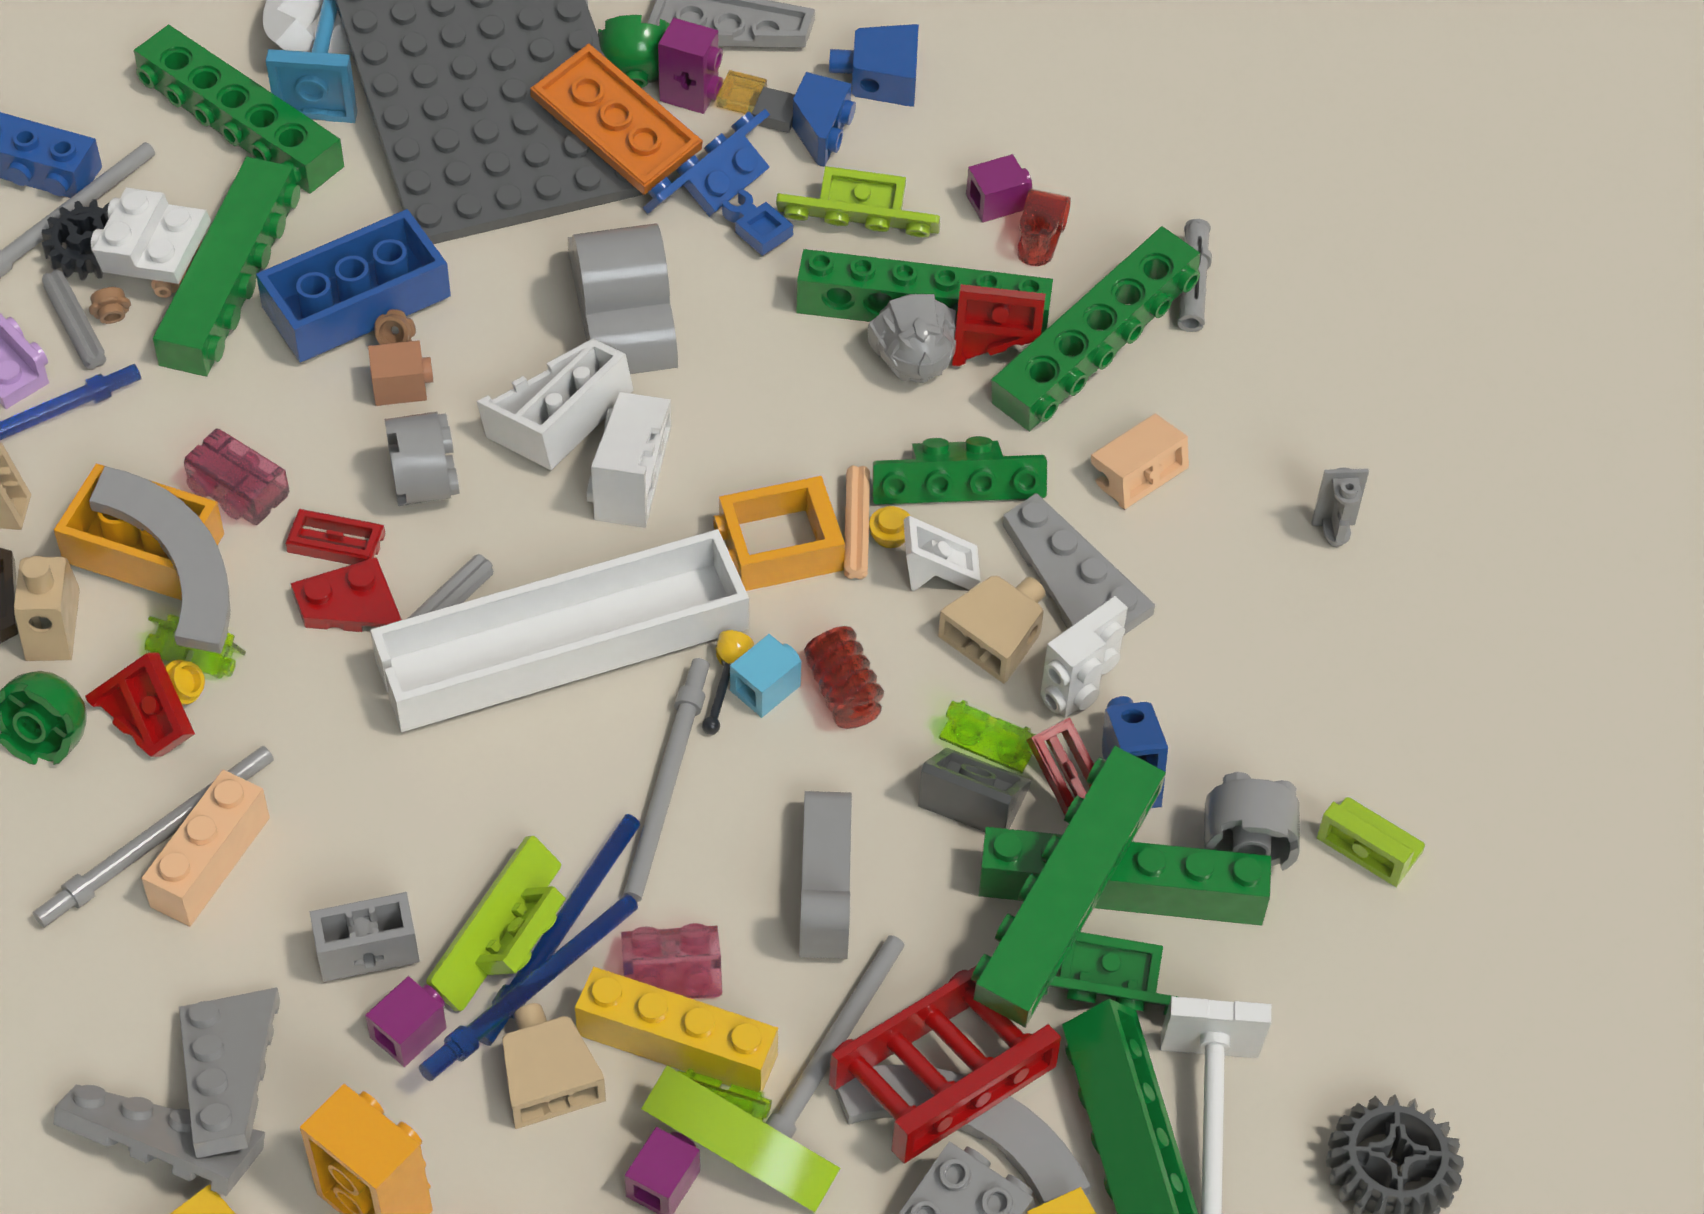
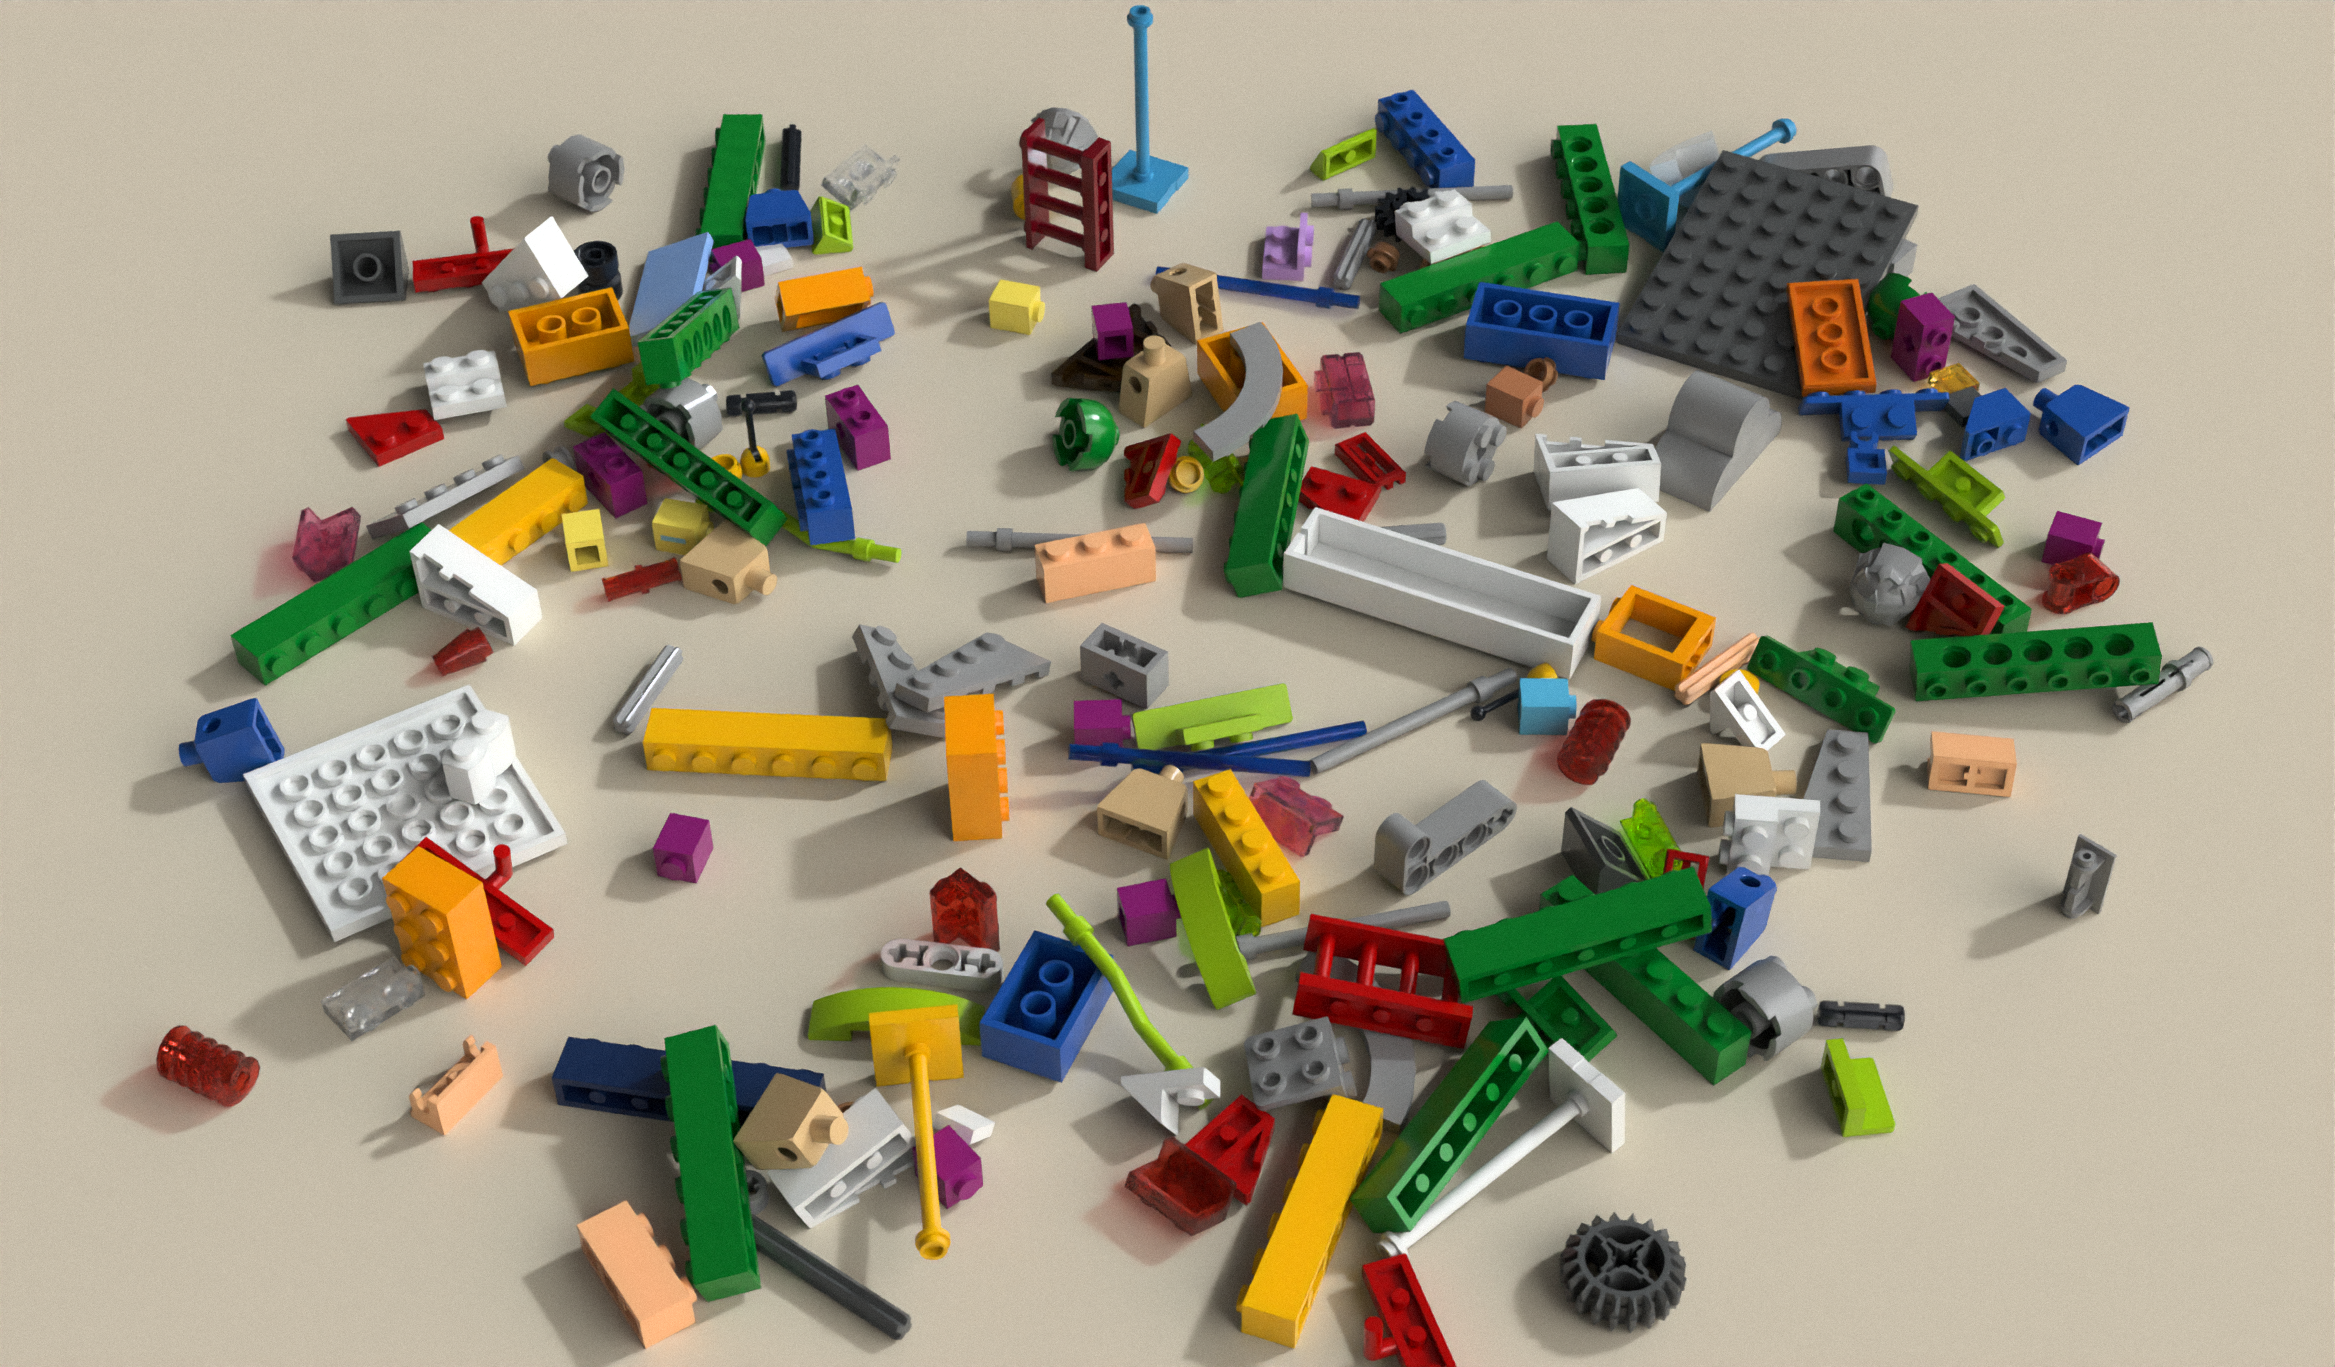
camera: 50 degrees right, 10 degrees down
(309, 664) = (1267, 507): none -> green brick
(1307, 760) = (1861, 1015): none -> black axle

